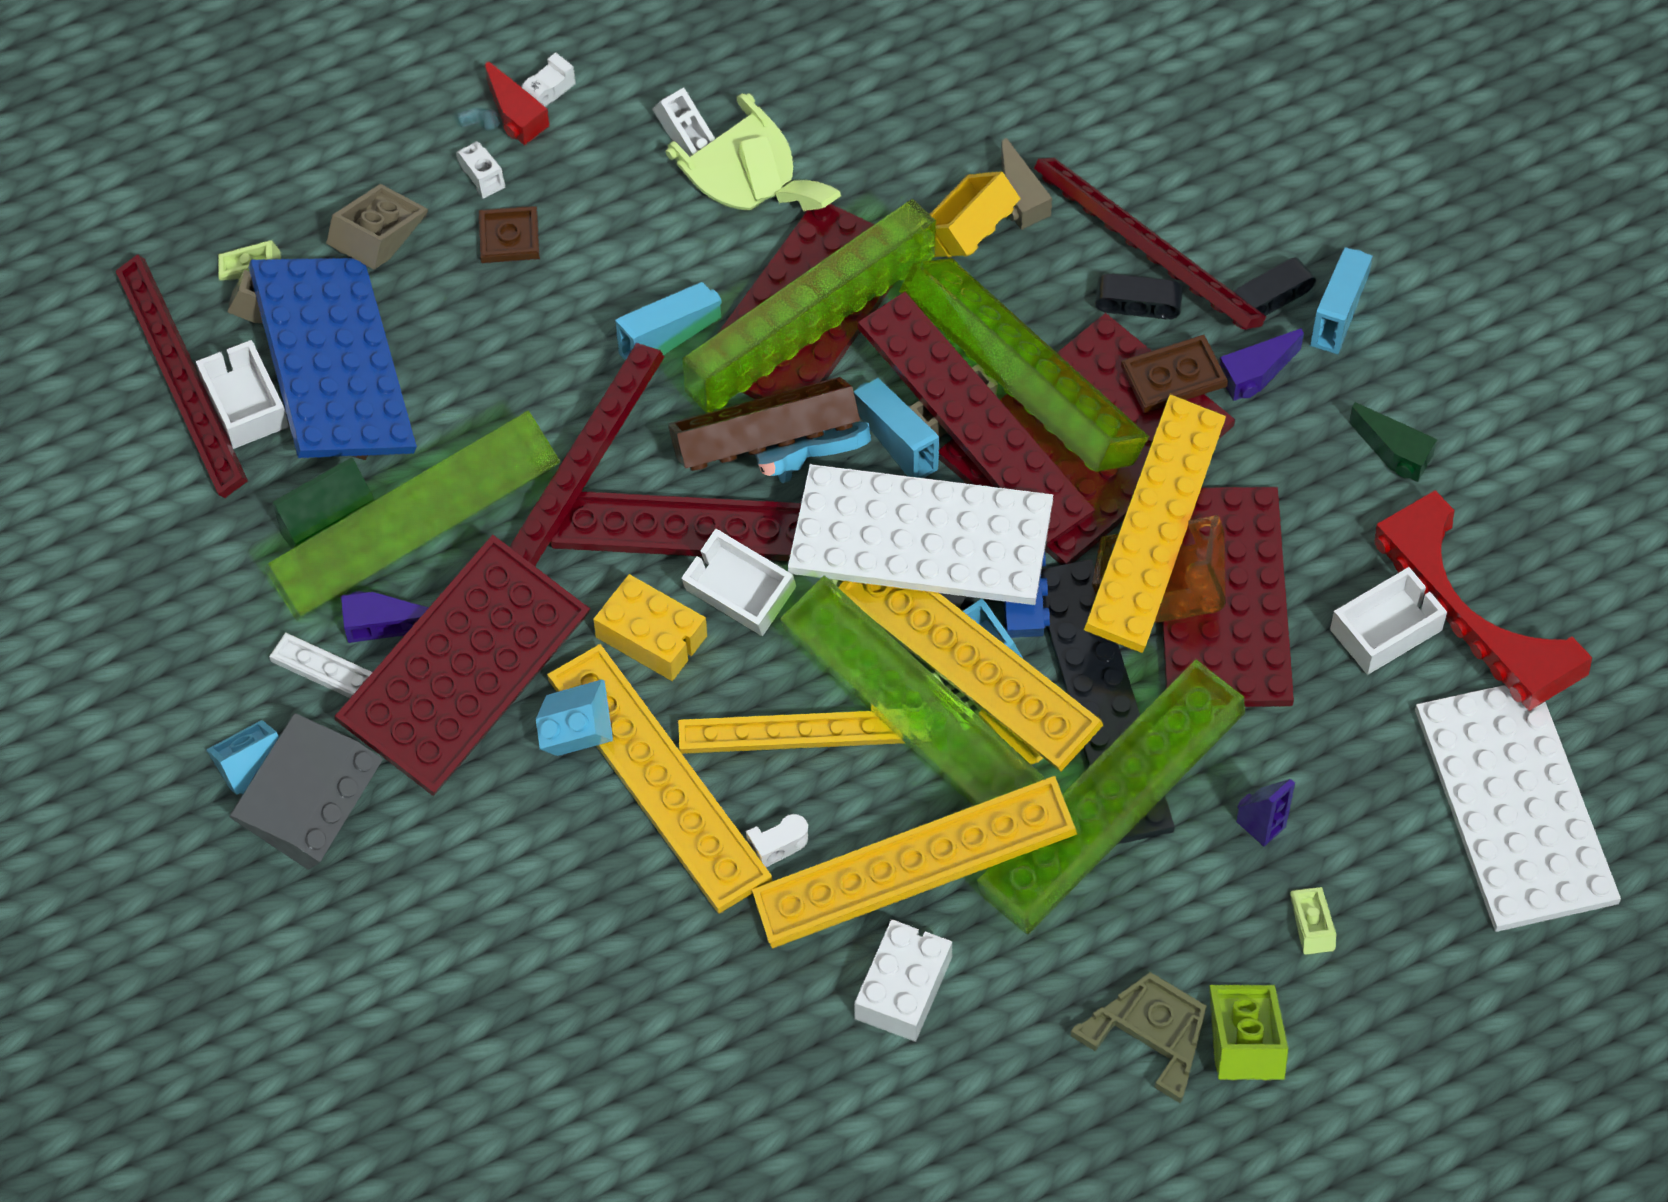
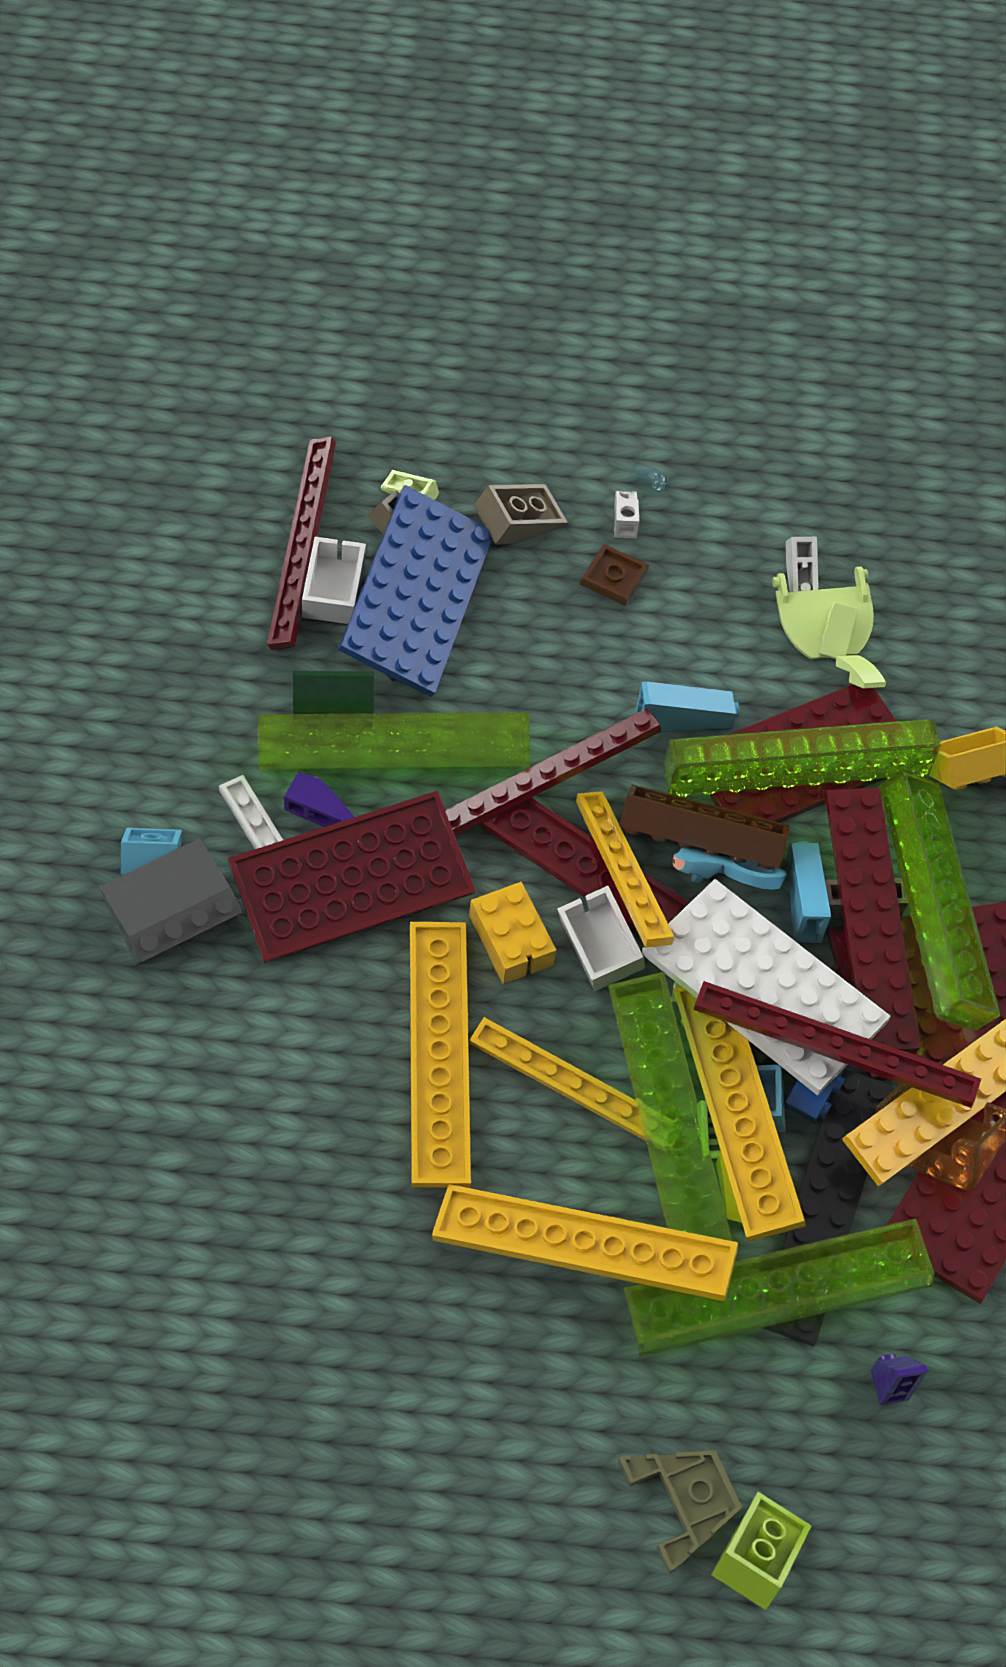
camera: 25 degrees right, 0 degrees up
(519, 111) = (684, 487): red slope -> none
(551, 80) = (721, 479): white leg -> none
(574, 719) = (404, 968): medium azure slope -> none
(718, 505) = (624, 870): none -> yellow plate
(780, 840) = (496, 1160): white leg -> none
(903, 980) = (515, 1331): white piece -> none
(1024, 547) = (837, 1044): none -> dark red plate
(1313, 920) = (879, 1492): yellowish green slope -> none

